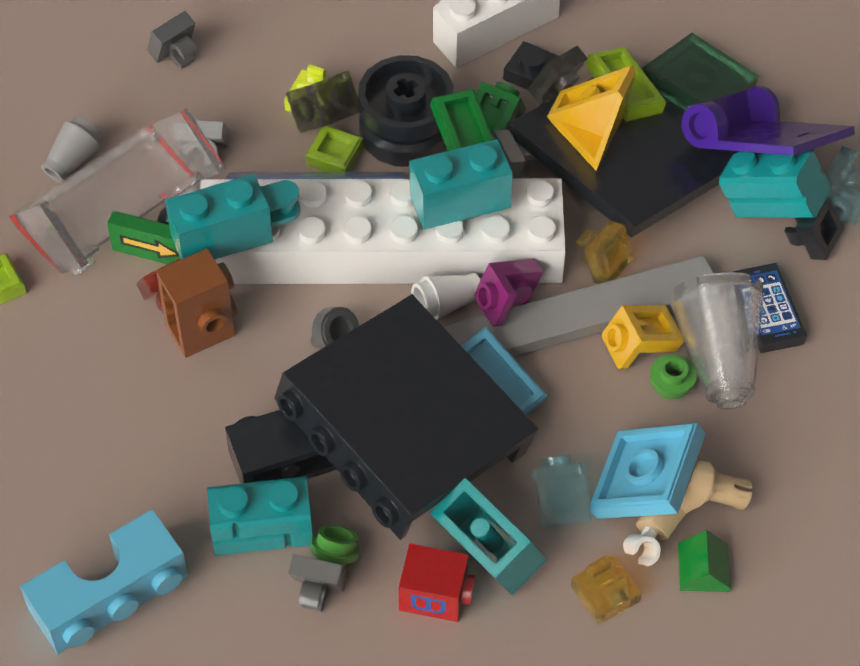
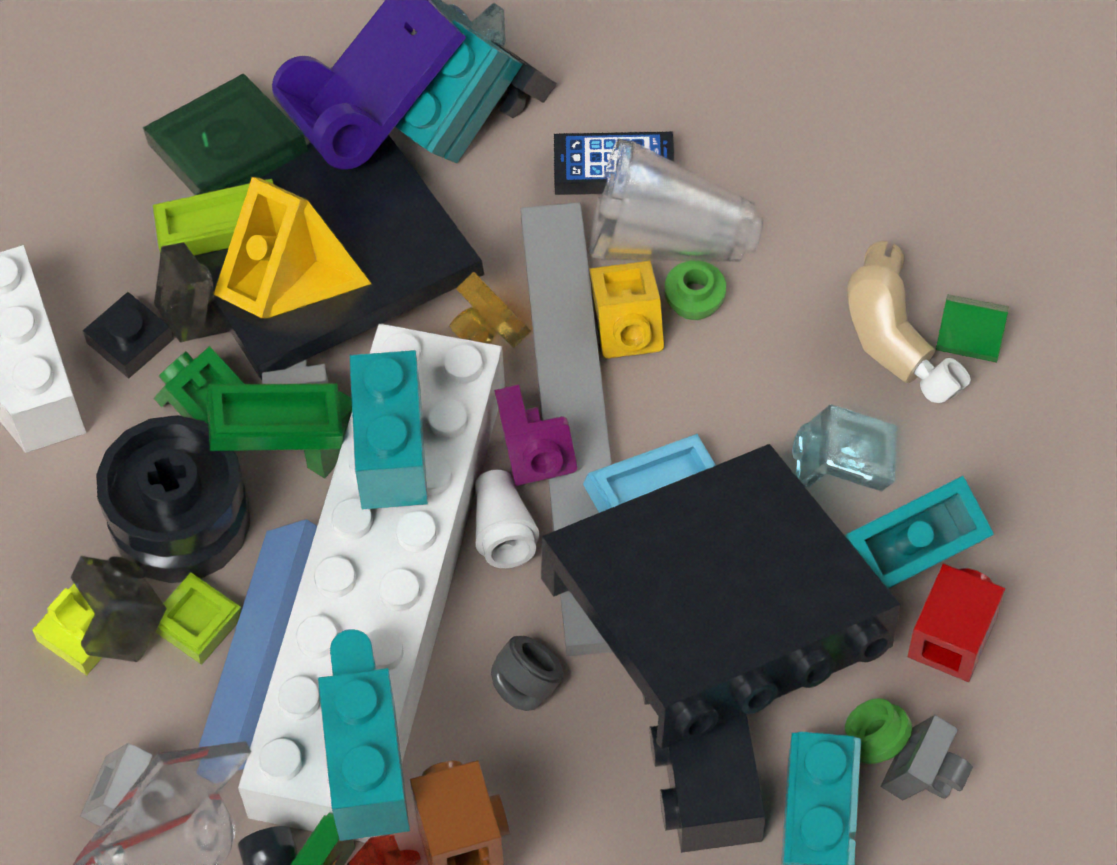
camera: 75 degrees left, 5 degrees up
(605, 588) = (987, 437): clear yellow tile -> none
(647, 471) = (848, 341): medium azure tile -> none

